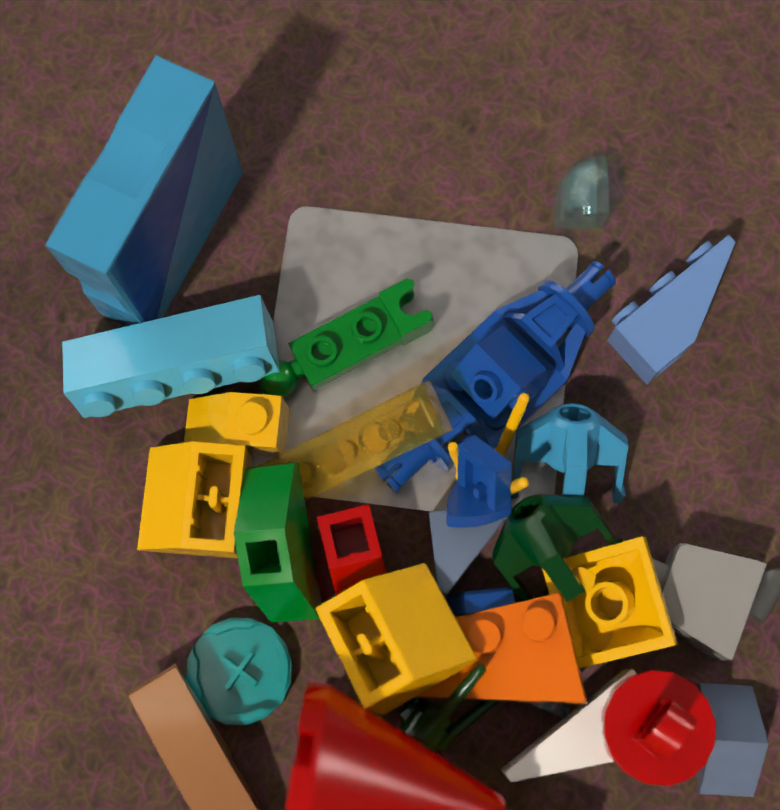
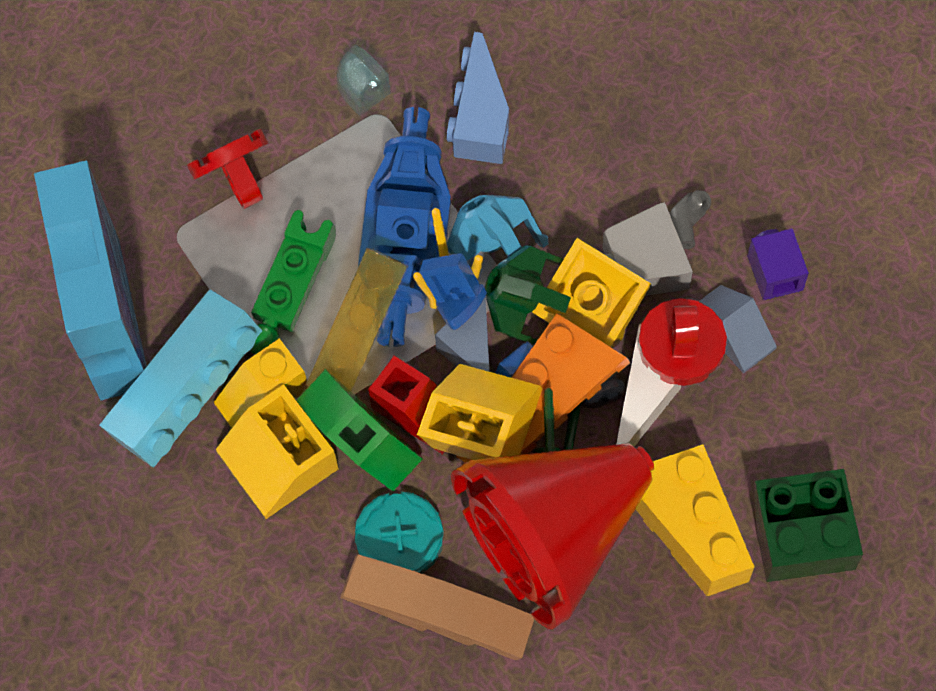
camera: 40 degrees left, 10 degrees down
(392, 180) = (234, 167): none -> red tile

